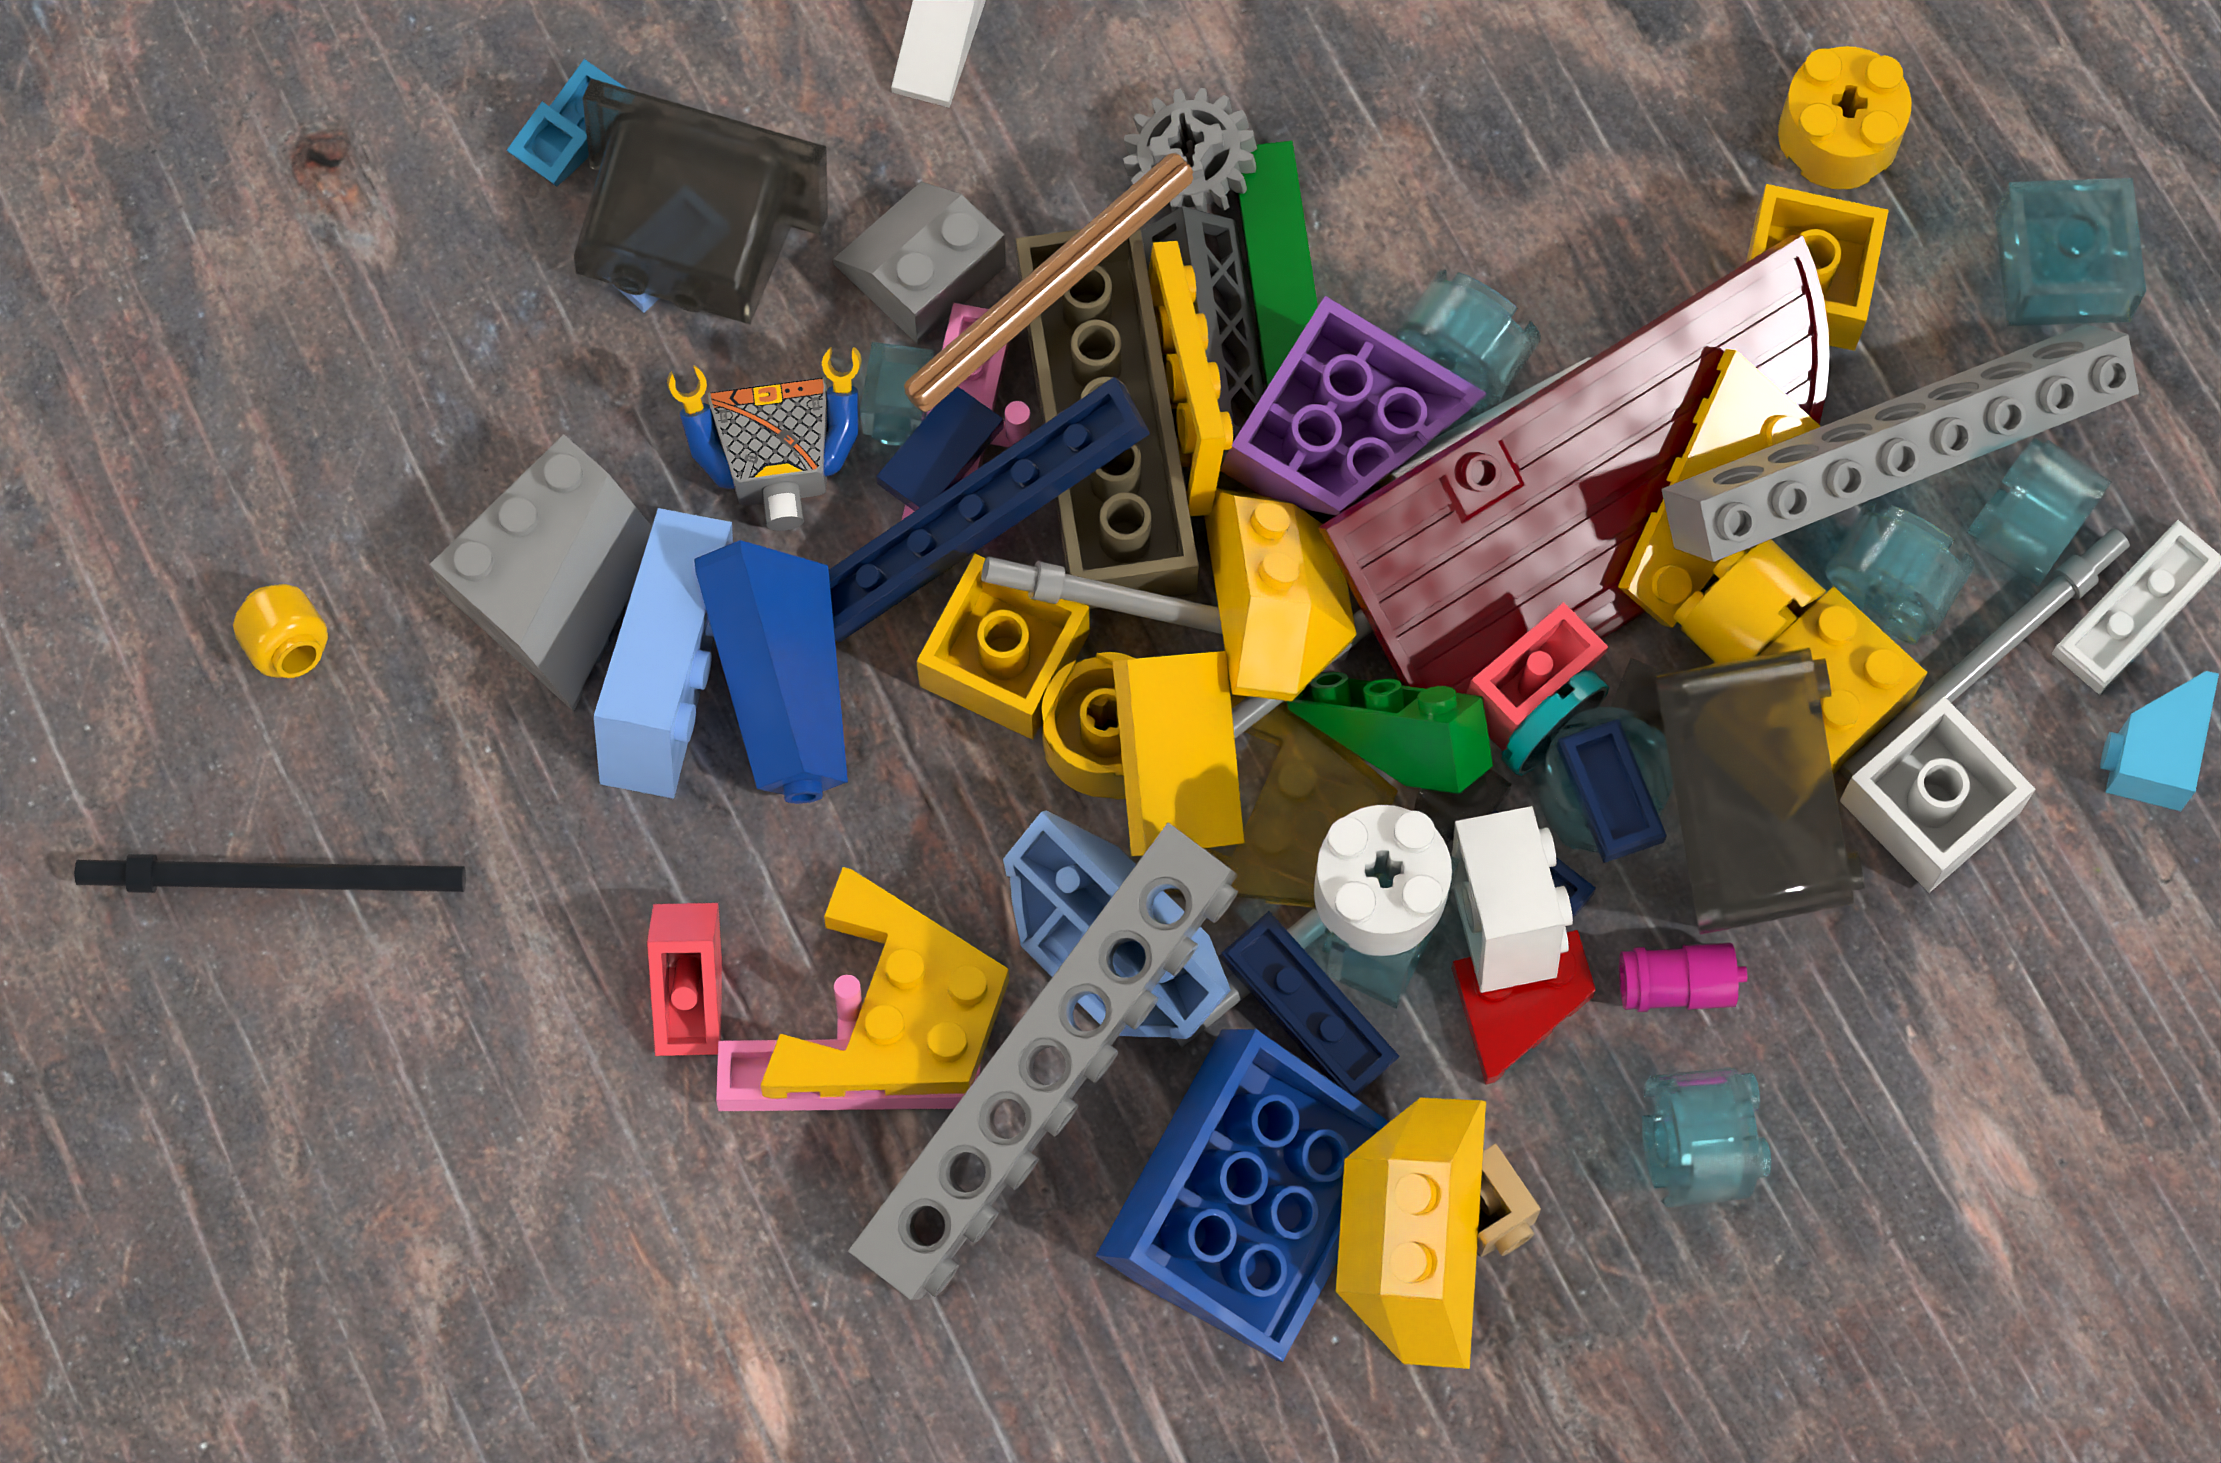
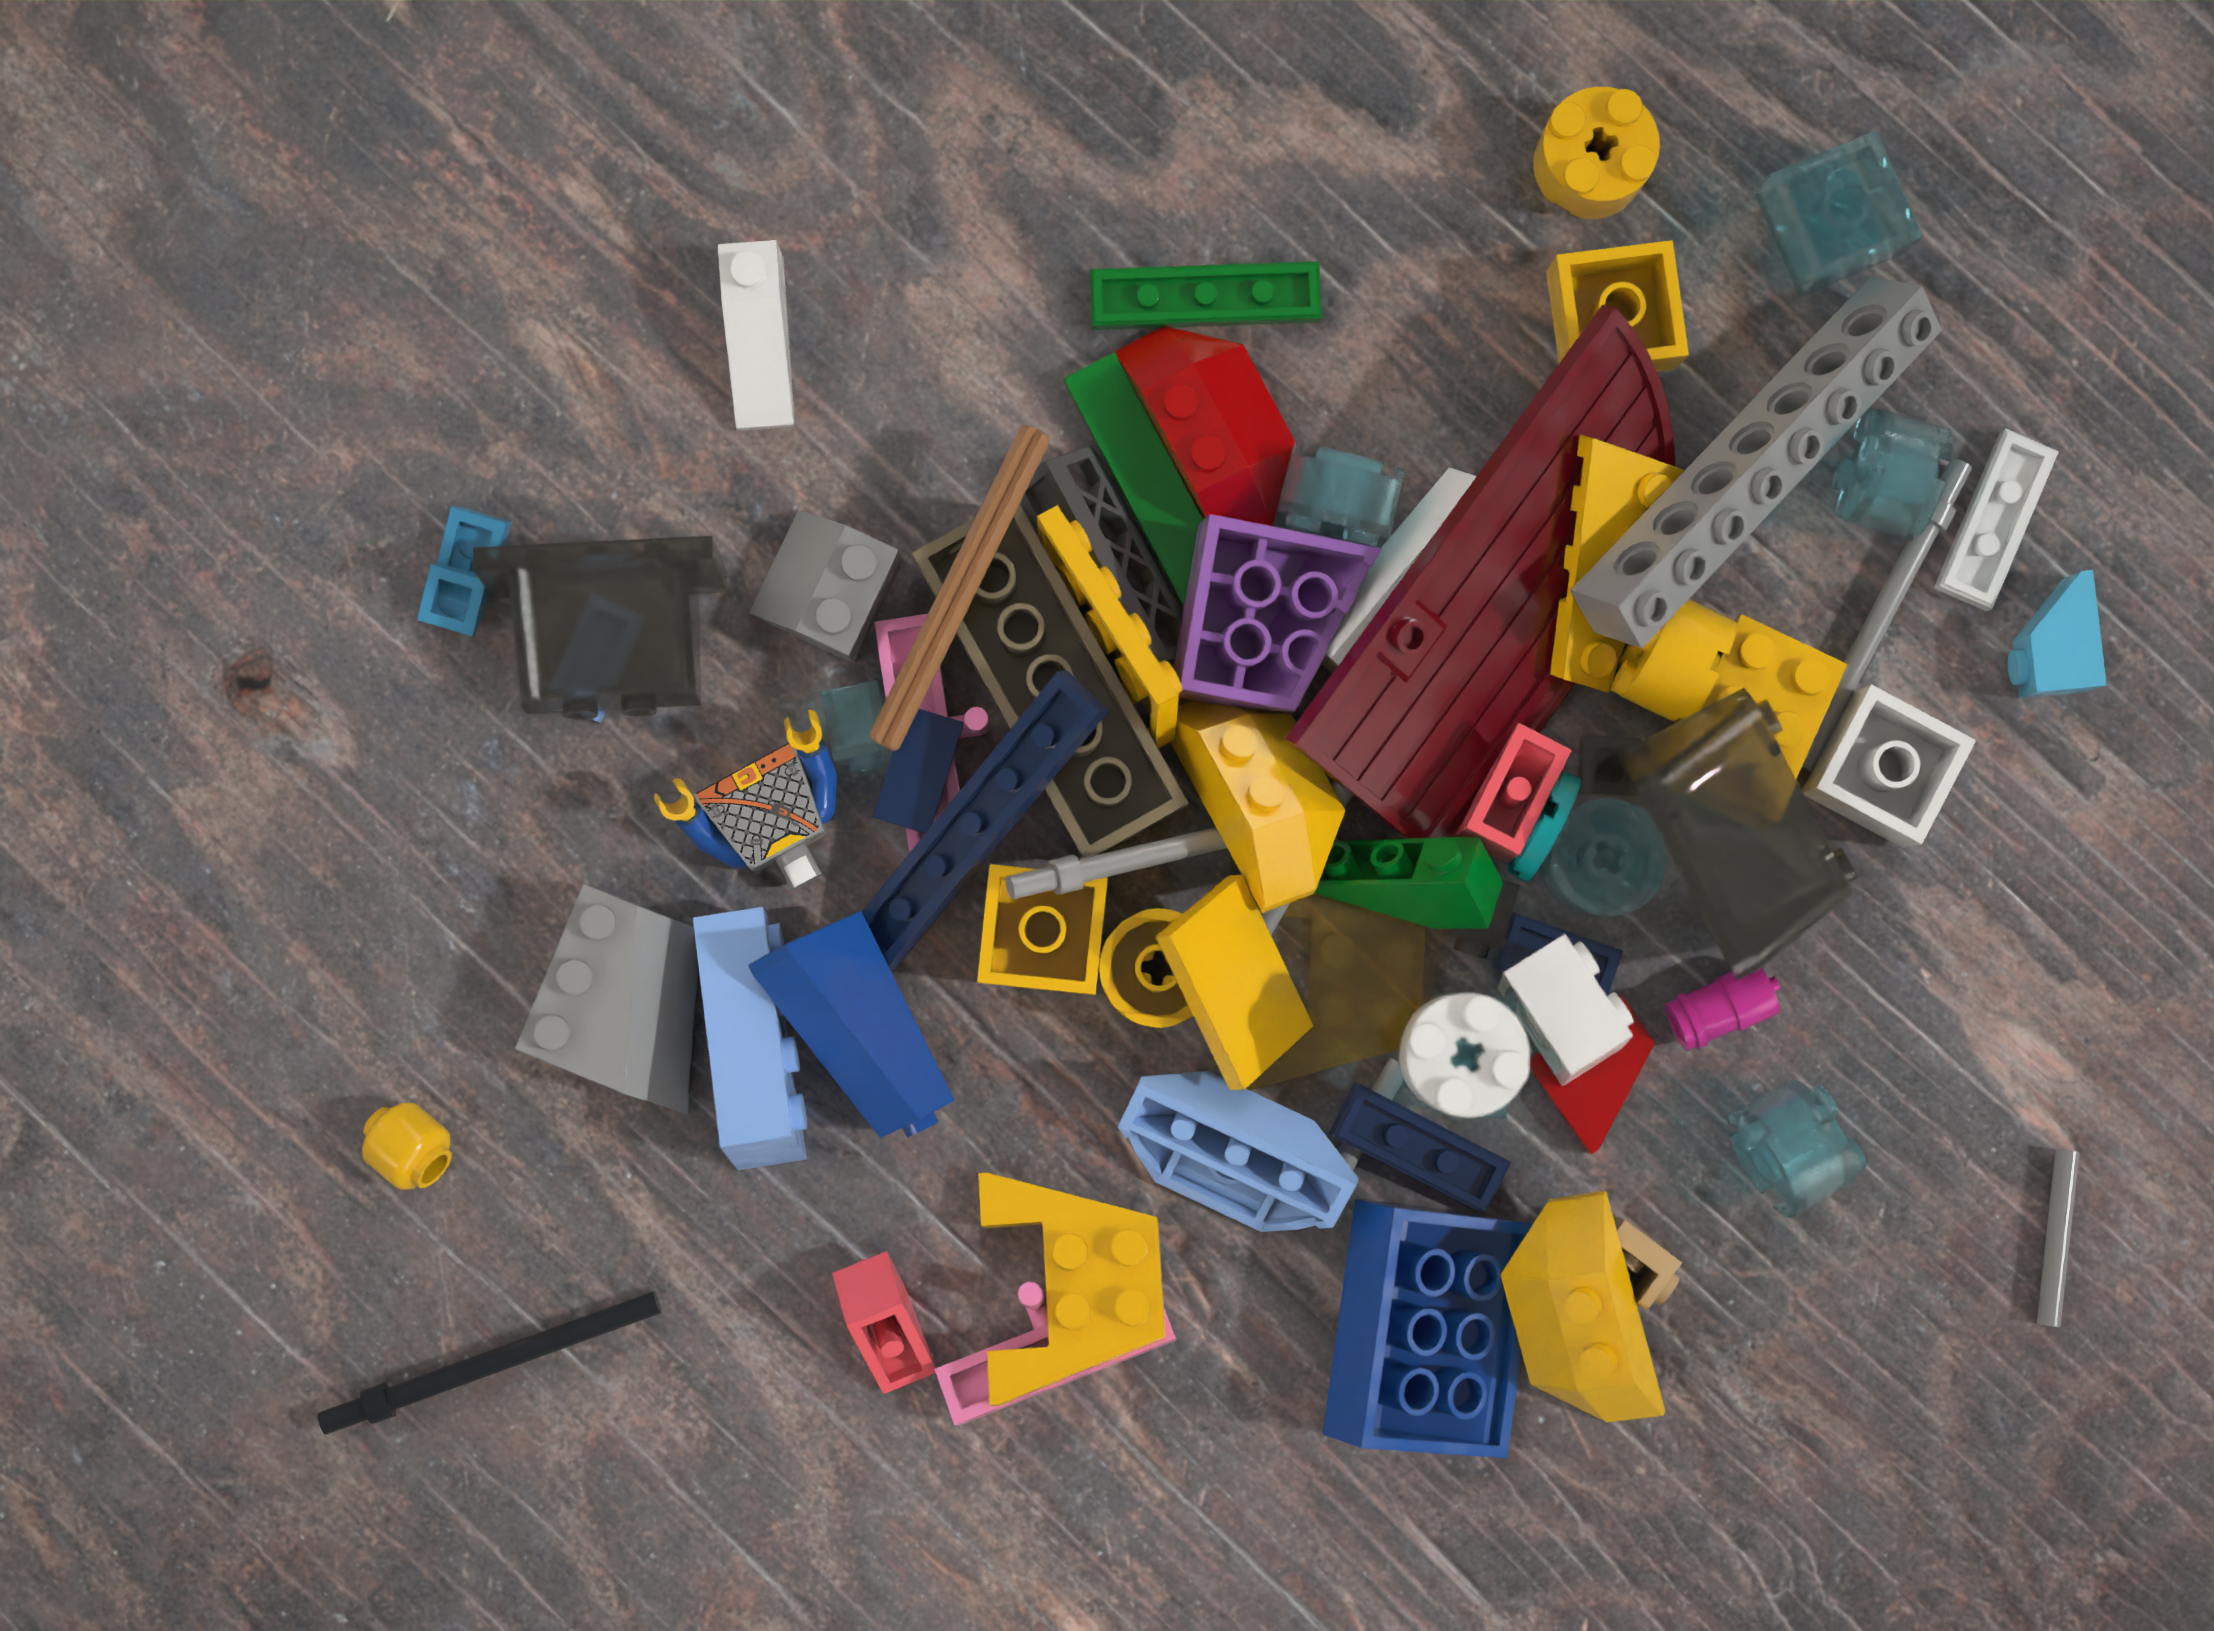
camera: 25 degrees left, 15 degrees up
(890, 1238) = (1151, 1492): light grey brick -> none
(1220, 147) = (1049, 387): light grey gear -> none
(1366, 229) = (1213, 420): none -> red wedge
(1404, 123) = (1205, 295): none -> green tile
(1611, 790) = (1619, 880): dark blue tile -> none
(1899, 570) = (1790, 574): clear light blue brick -> none
(1959, 1350) = (2057, 1238): none -> light grey bar

